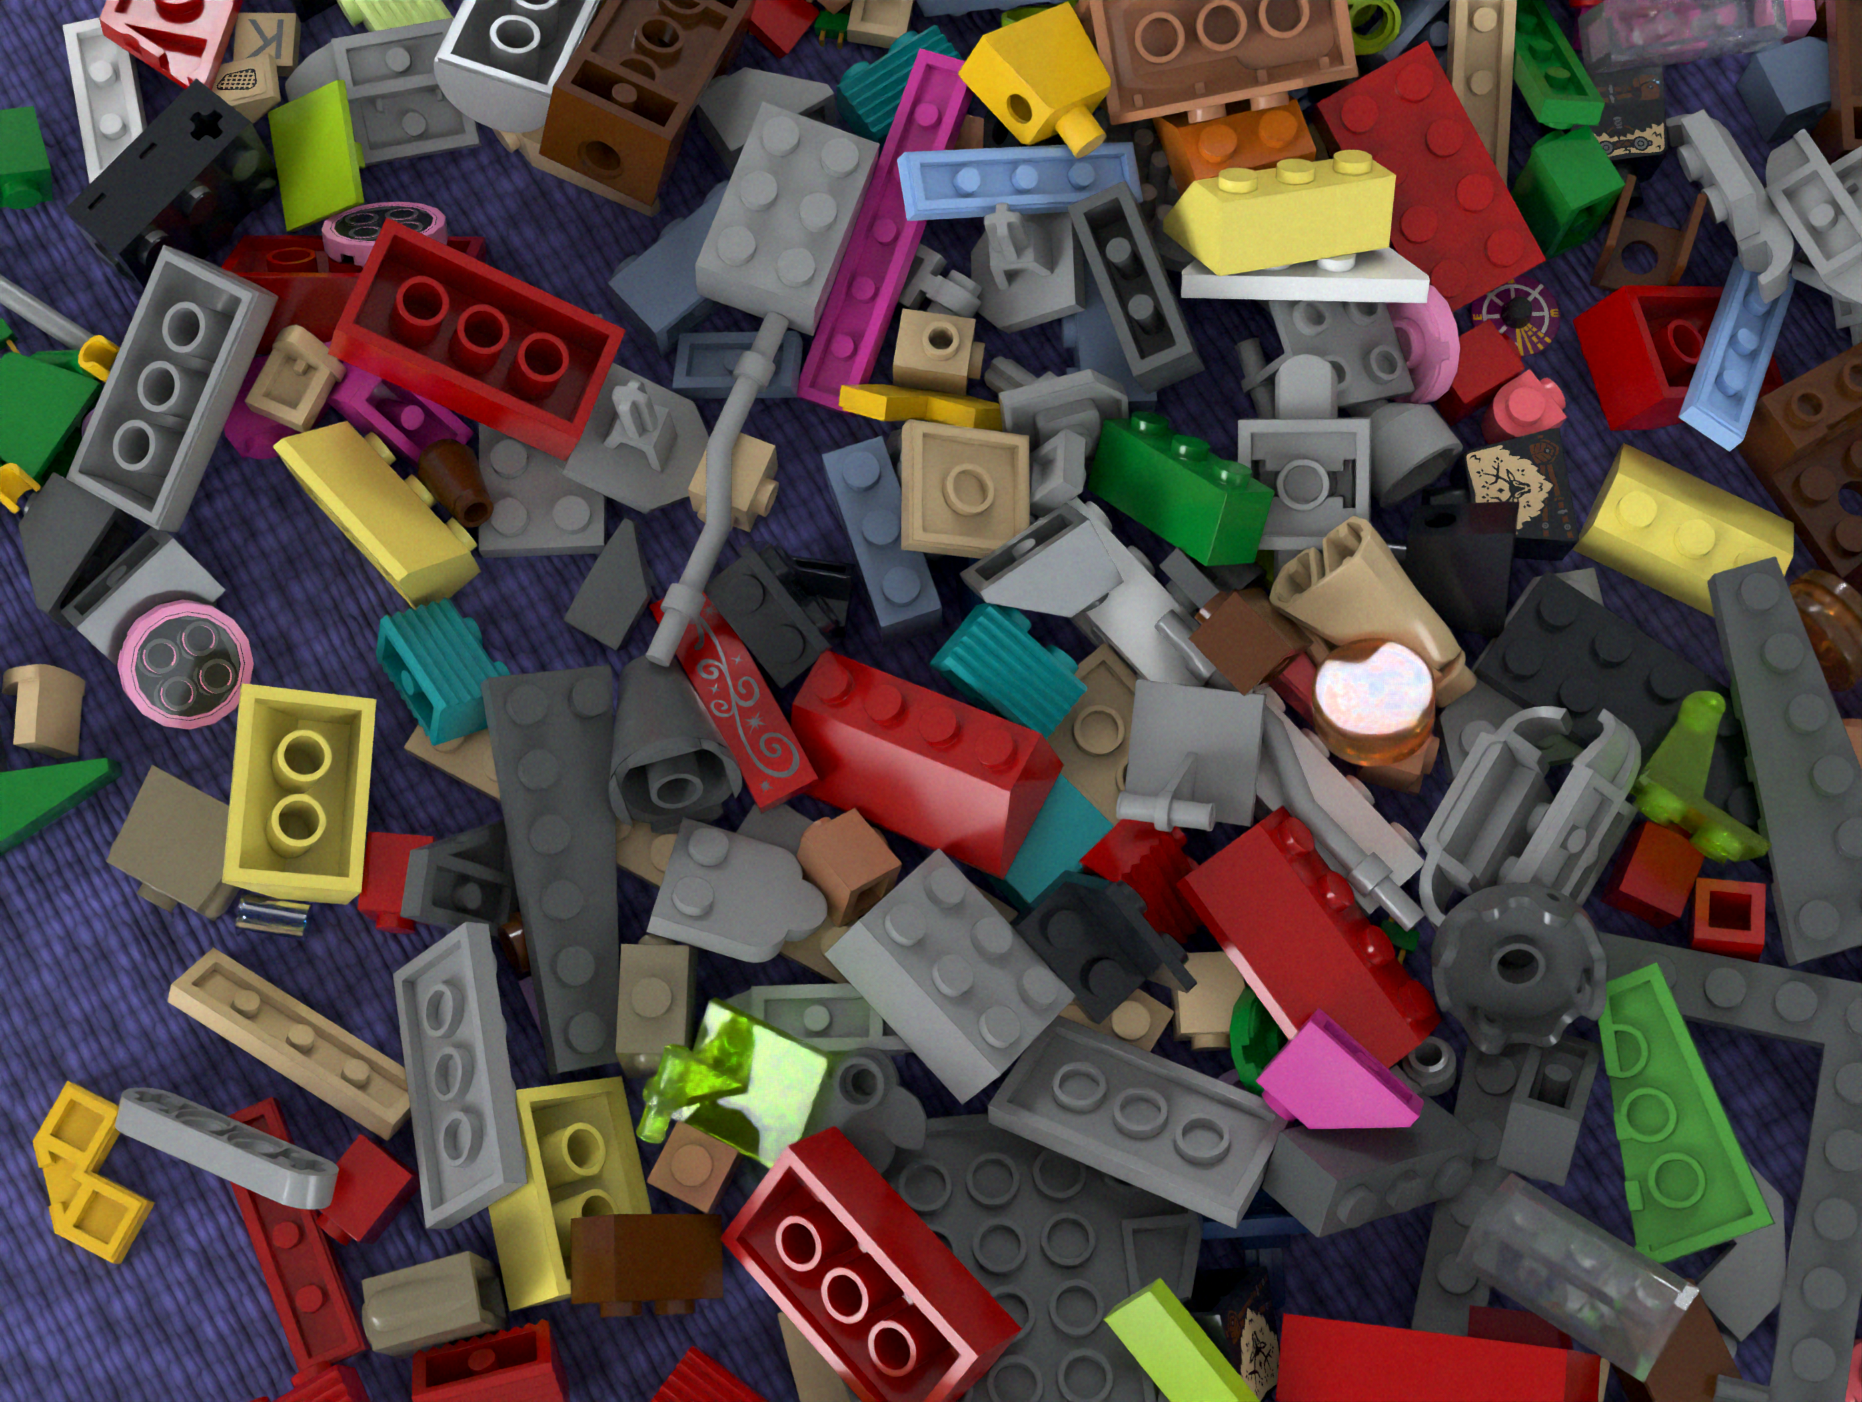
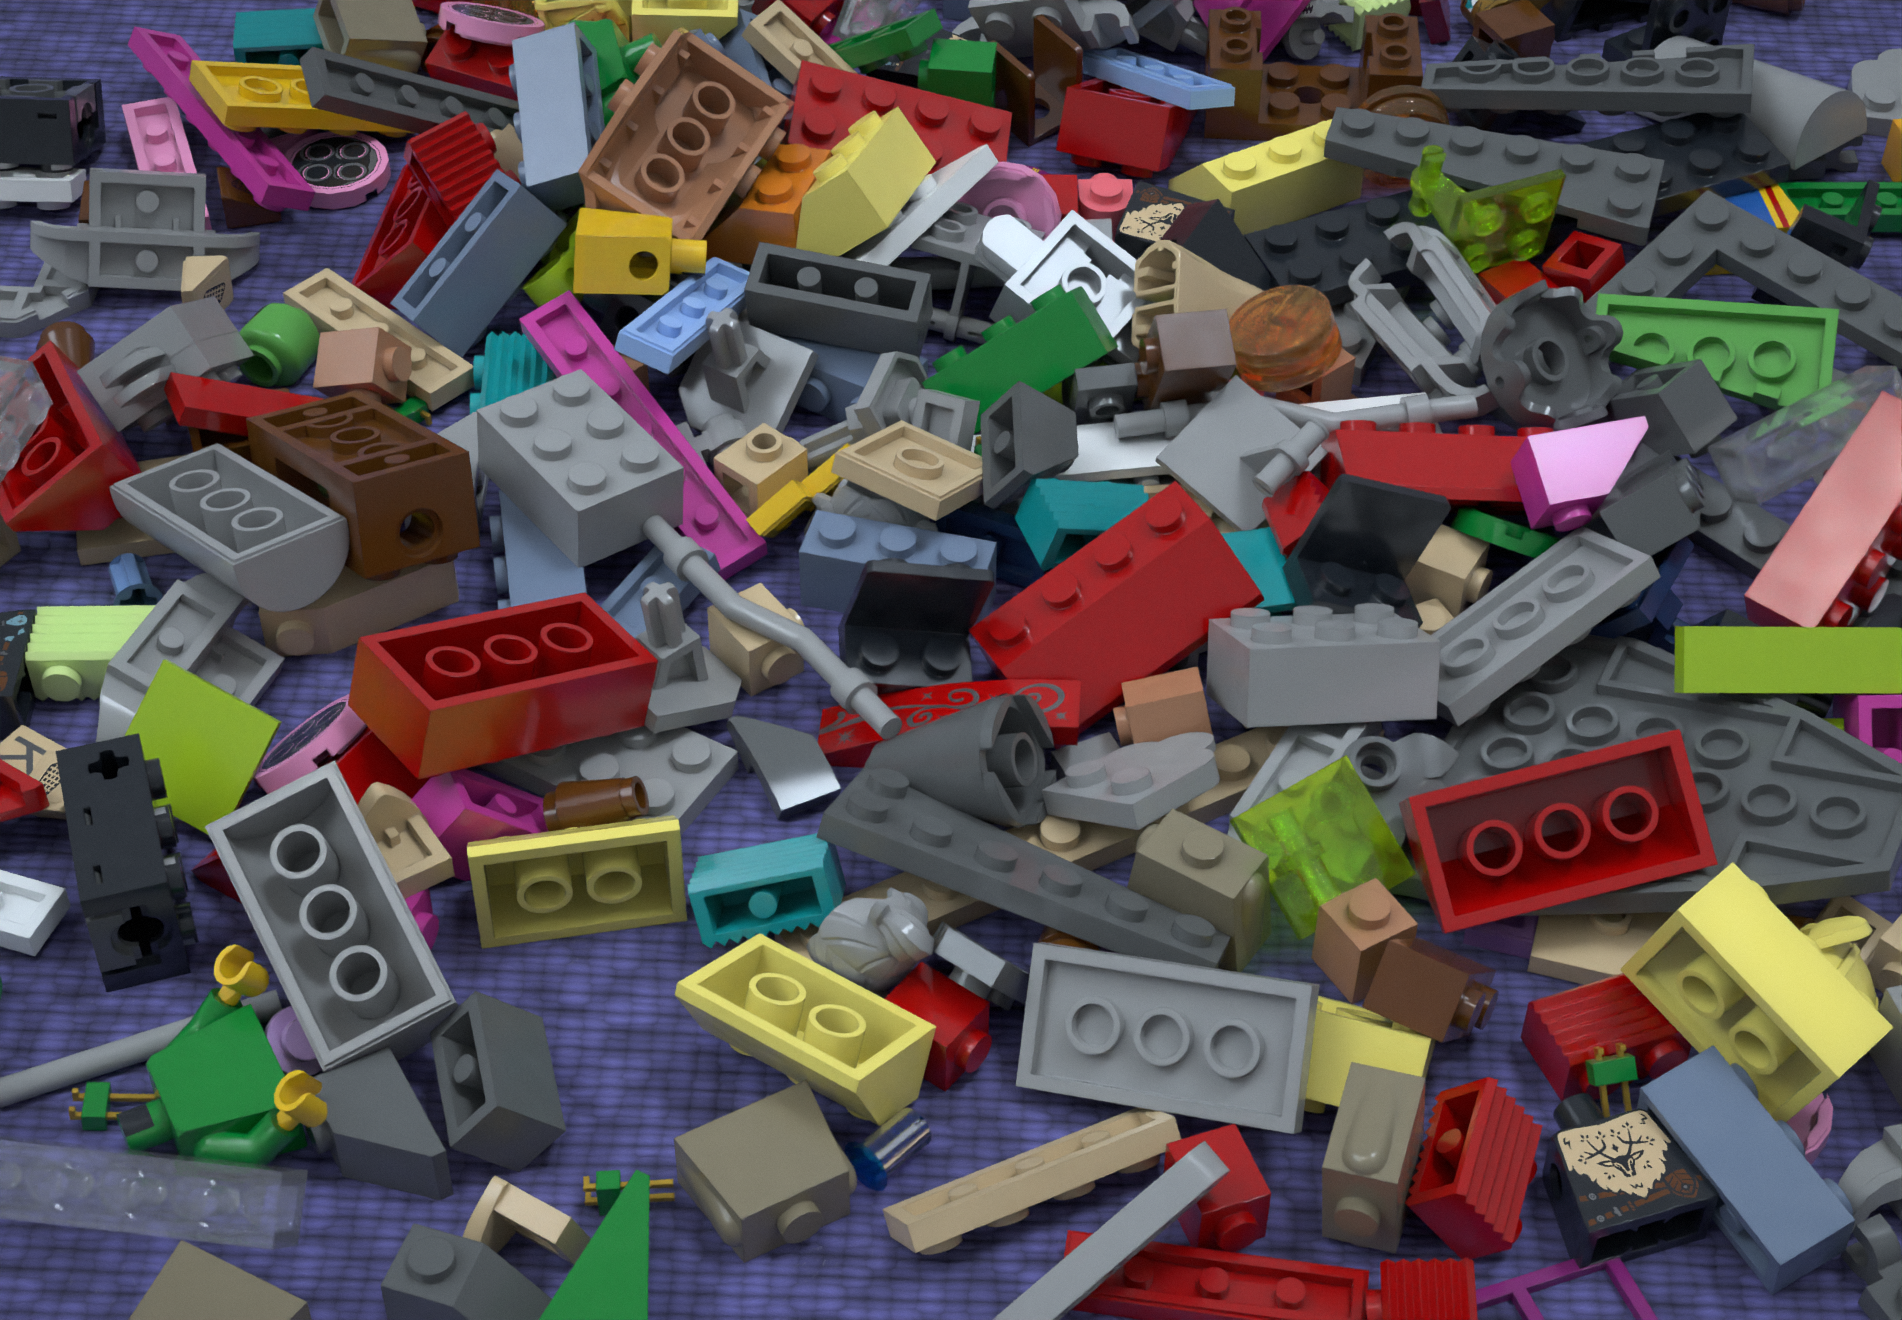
camera: 55 degrees left, 30 degrees down
(119, 746) = (609, 1187): none -> piece
(185, 664) = (590, 1079): tile -> none
(420, 798) = (874, 940): none -> light grey hair

